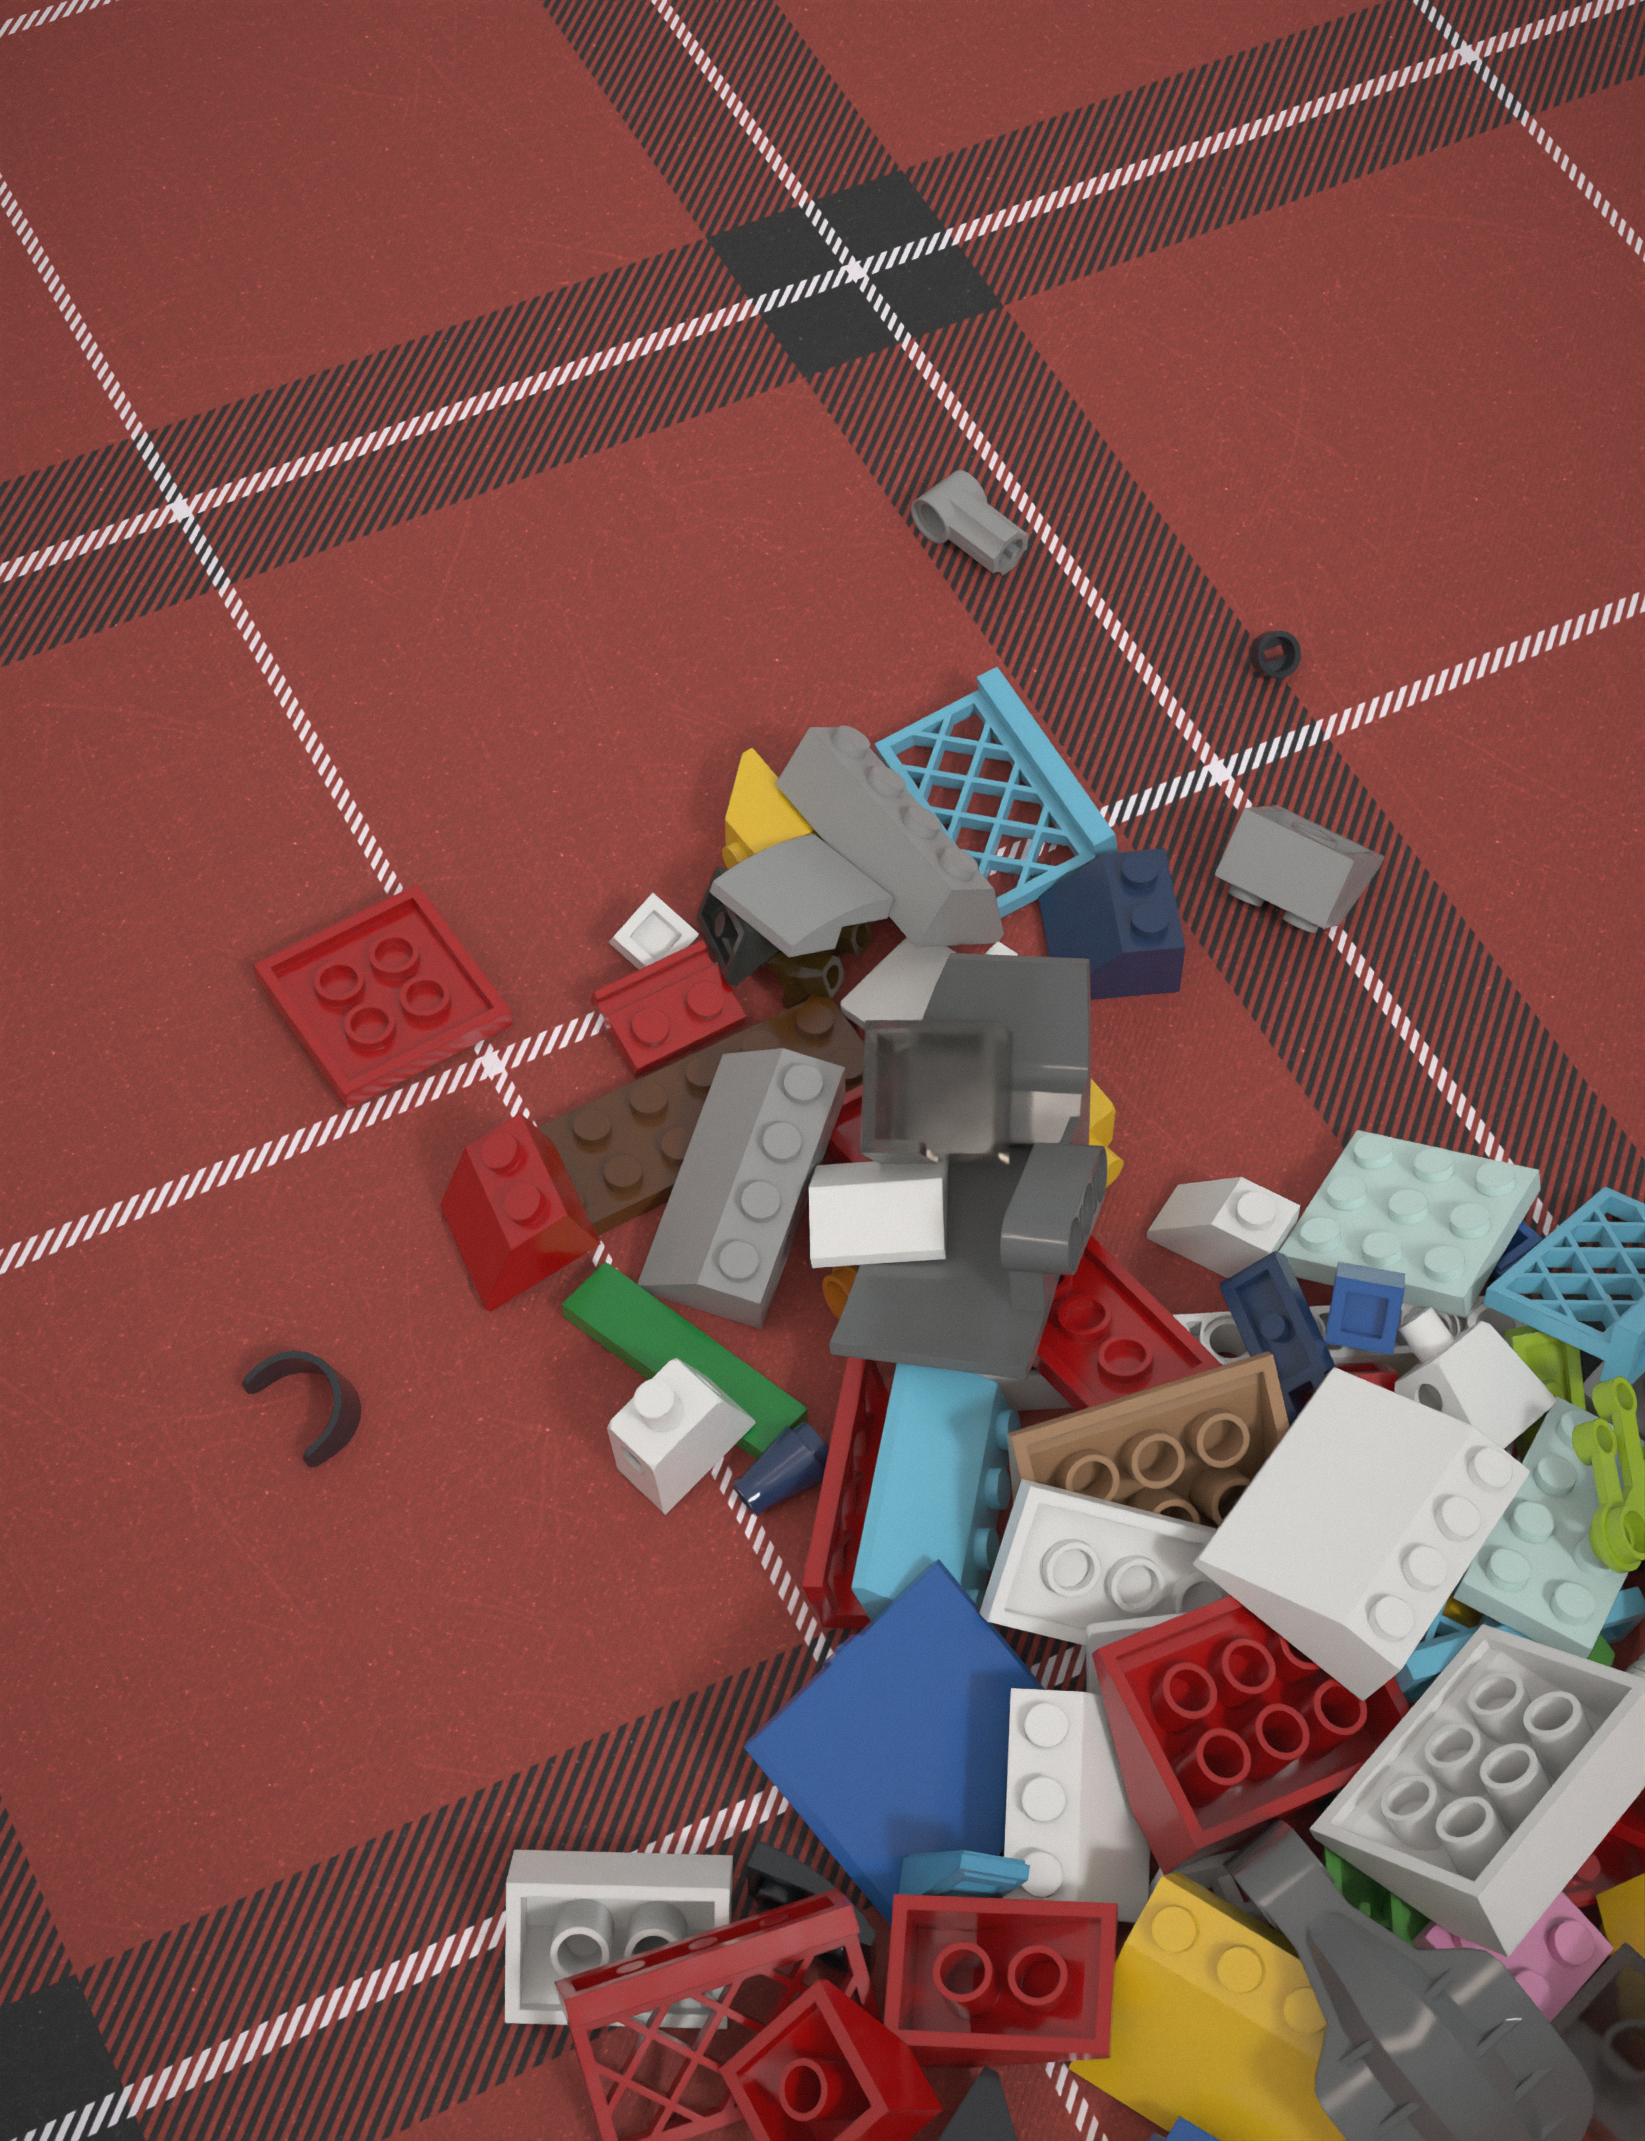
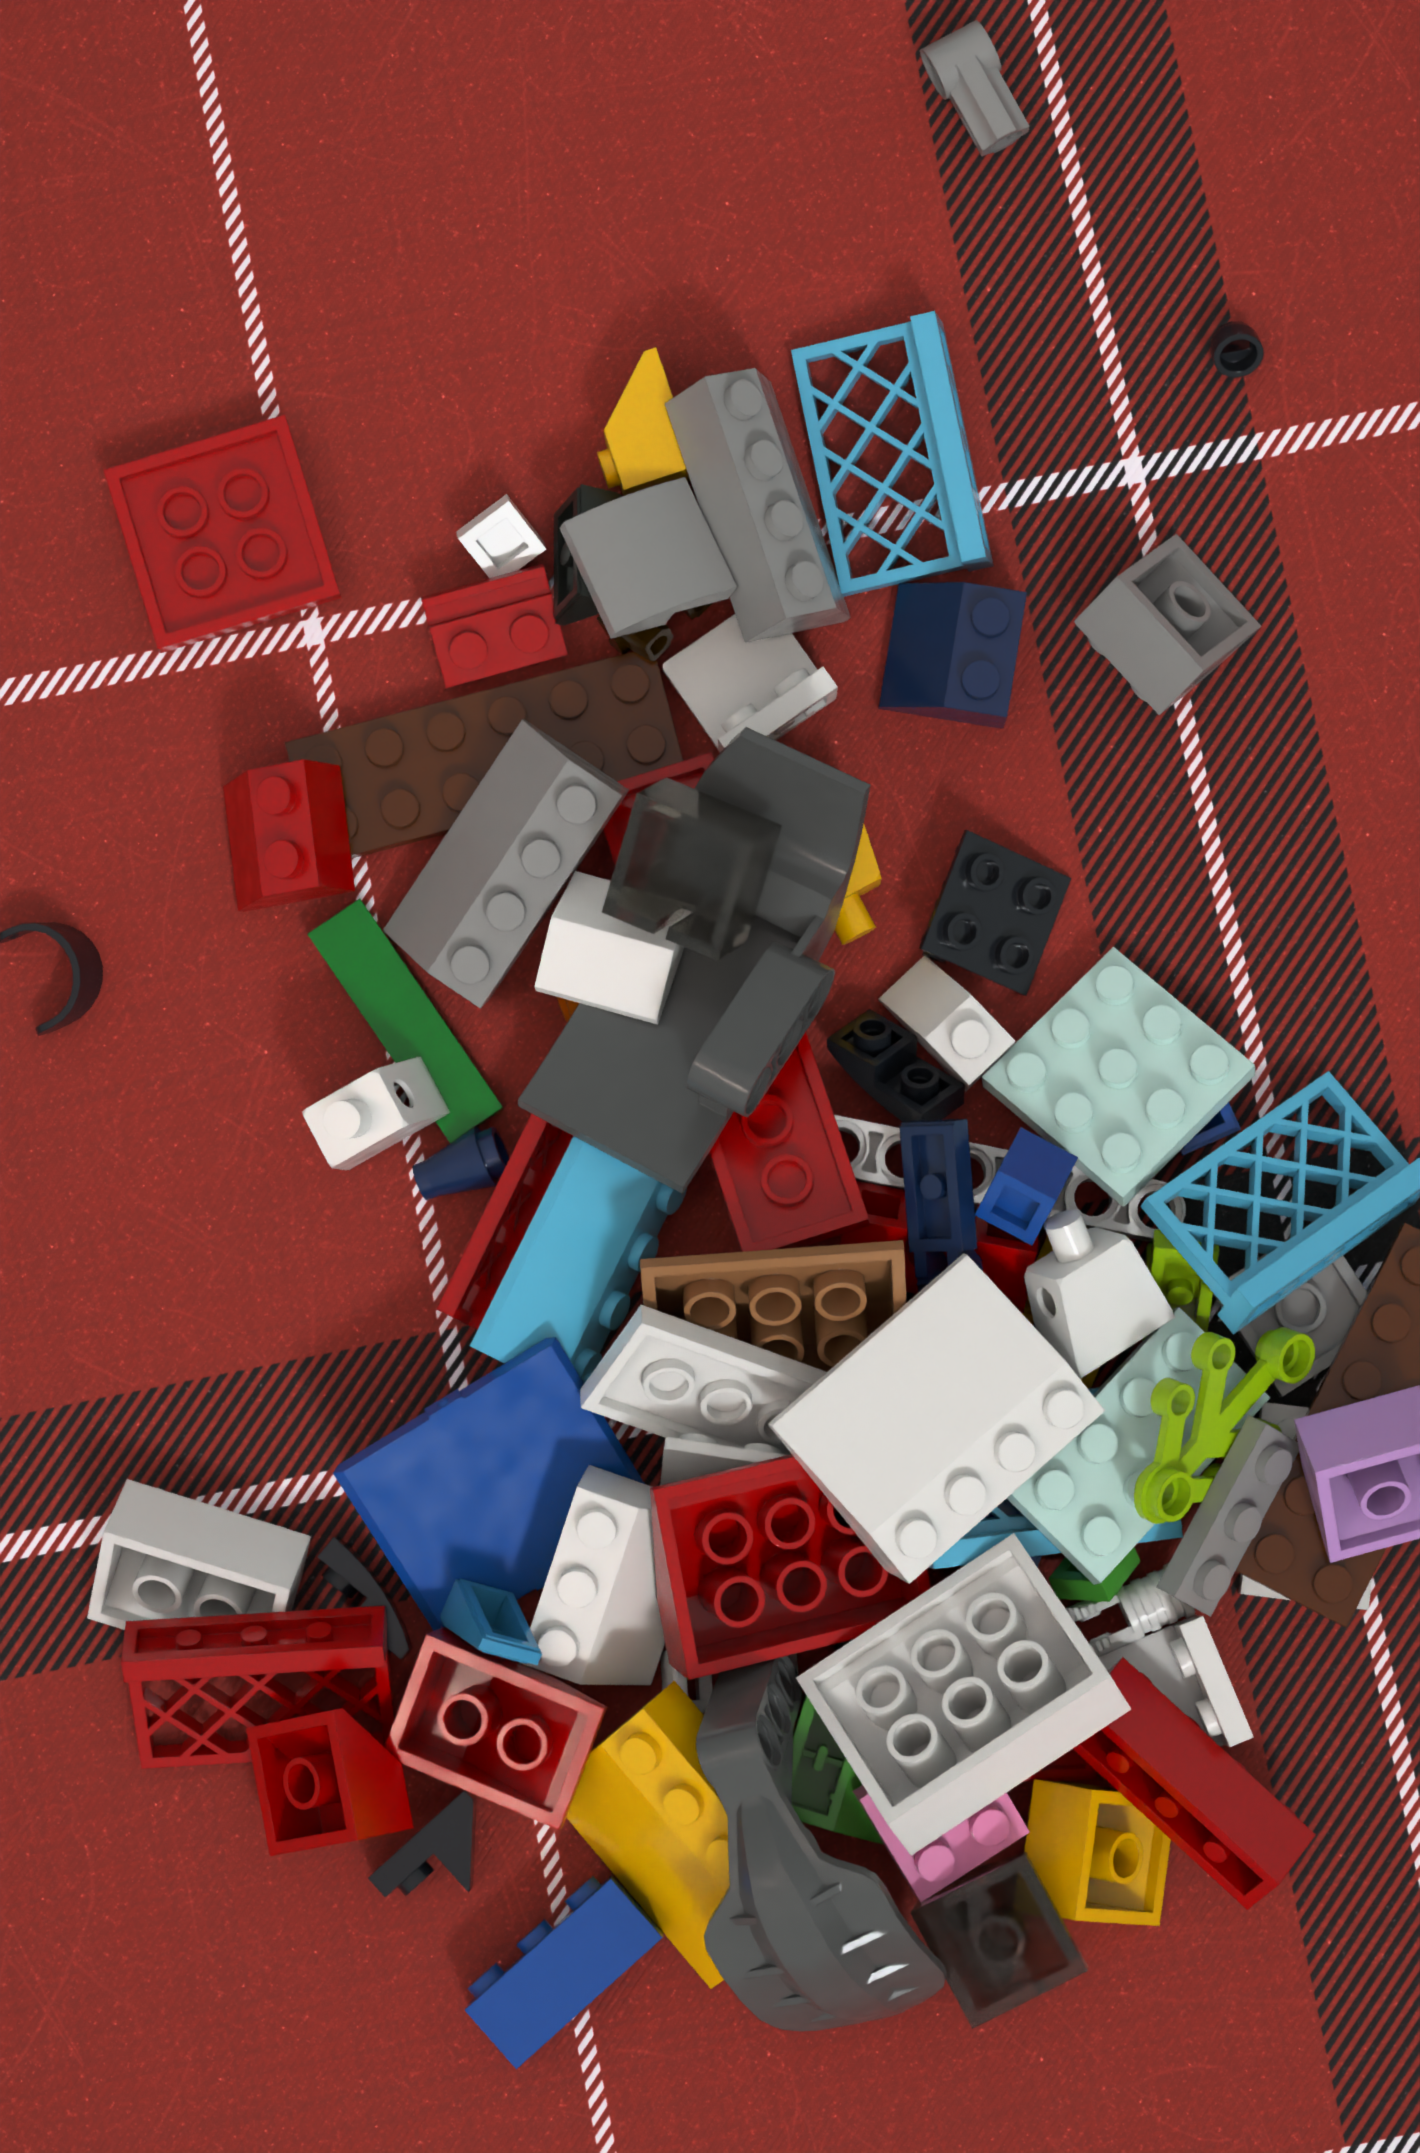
camera: 20 degrees right, 30 degrees up
(1178, 1271) = (886, 1066): none -> black slope
(1230, 1126) = (994, 913): none -> black hinge

